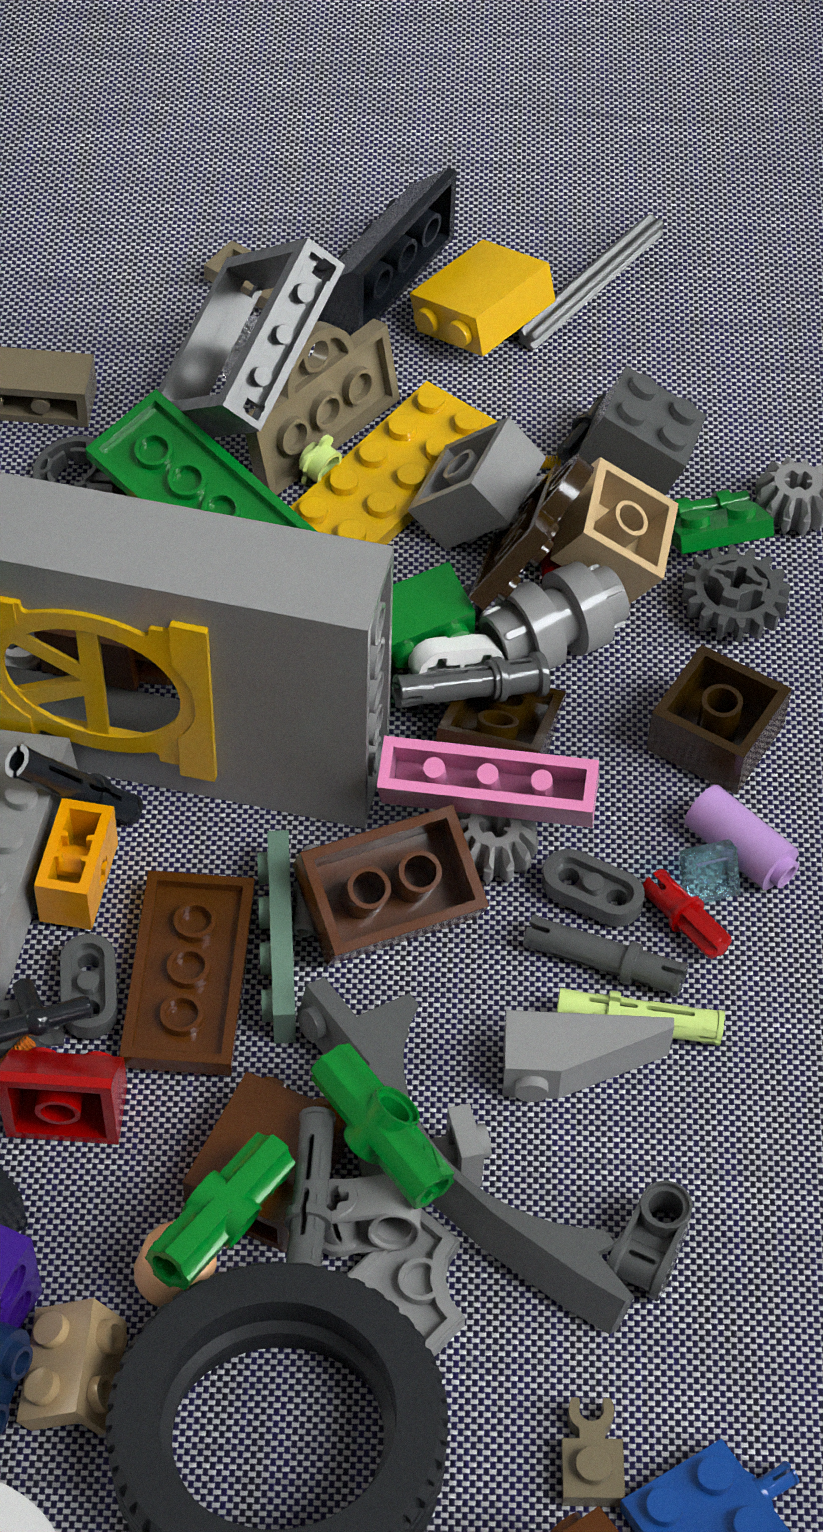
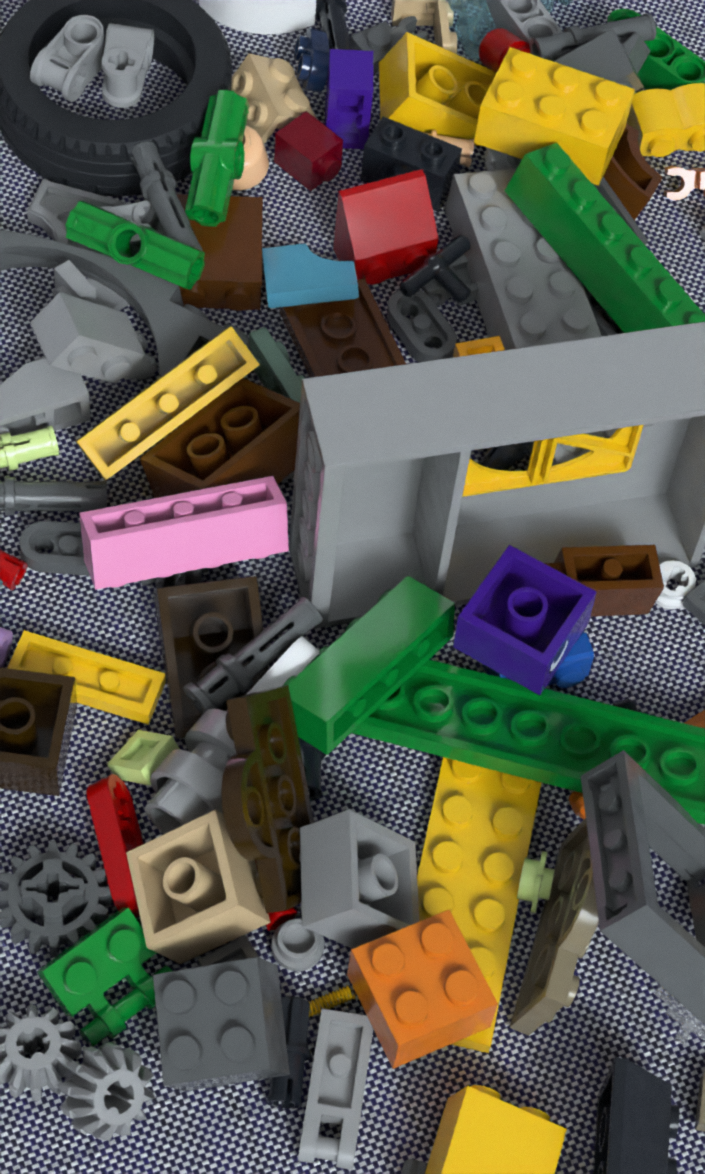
camera: 150 degrees right, 5 degrees up
(77, 1256) = (308, 151): none -> dark red brick
(190, 1075) = (302, 278): none -> medium azure tile
(269, 1369) = (125, 63): none -> light grey piece
(351, 1382) = (71, 57): none -> light grey piece
(431, 948) = (167, 403): none -> yellow brick
(467, 390) = (421, 988): none -> orange brick
(479, 1055) = (92, 340): none -> light grey hinge
(563, 398) = (336, 1087): none -> light grey plate
(607, 670) = (141, 756): none -> yellowish green plate
(629, 761) = (99, 679): none -> yellow plate
(659, 617) = (116, 834): none -> red beam
(750, 439) = (103, 1109): none -> light grey gear

